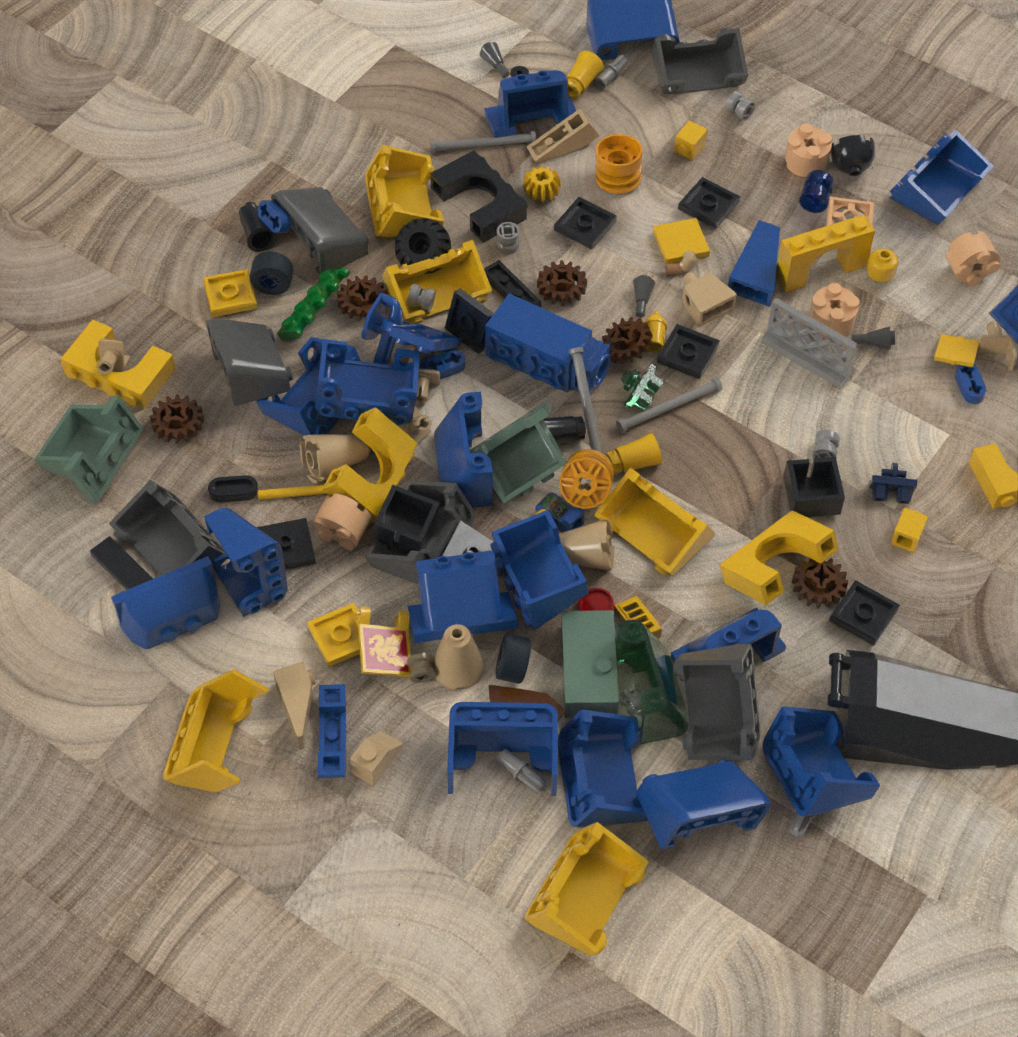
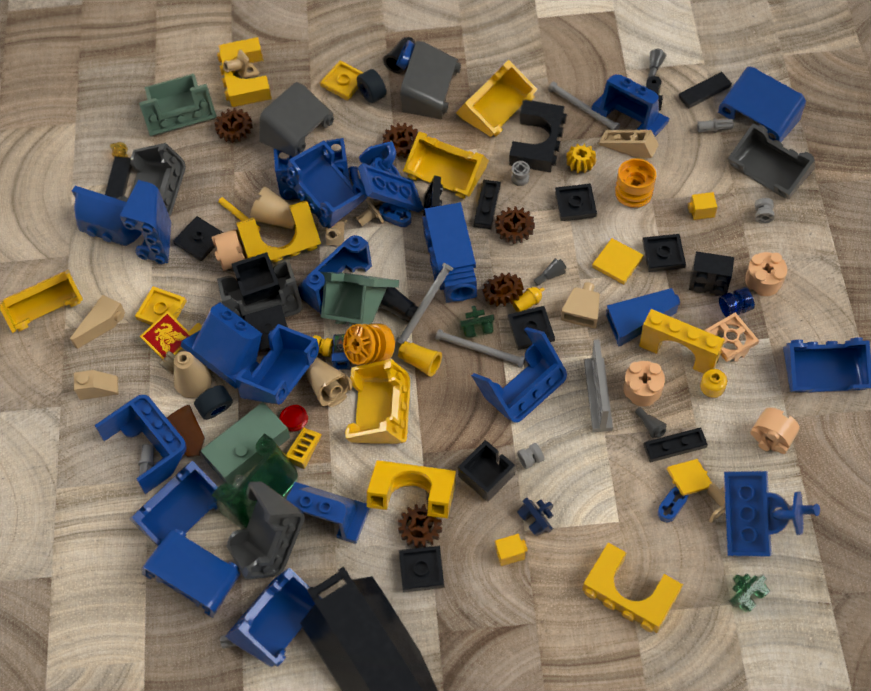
camera: 55 degrees right, 5 degrees up
(87, 539) = (119, 149): none -> clear yellow plate
(233, 488) = (214, 185): black tile -> none
(315, 299) = (378, 119): green hinge -> none
(332, 731) = (94, 355): blue slope -> none
(415, 235) = (469, 135): black wheel -> none
(421, 297) = (428, 166): light grey wheel -> none
(564, 48) = (705, 90): none -> black tile
(583, 72) = (690, 112): yellow plant -> none
(585, 888) = (87, 556): yellow windscreen -> none
(684, 266) = (597, 277): arm -> none
(747, 389) = (531, 385): none -> blue windscreen
(772, 183) = (711, 273): none -> black piece
(853, 154) = (790, 301): black cylinder -> none
(912, 339) = (675, 444): none -> black tile

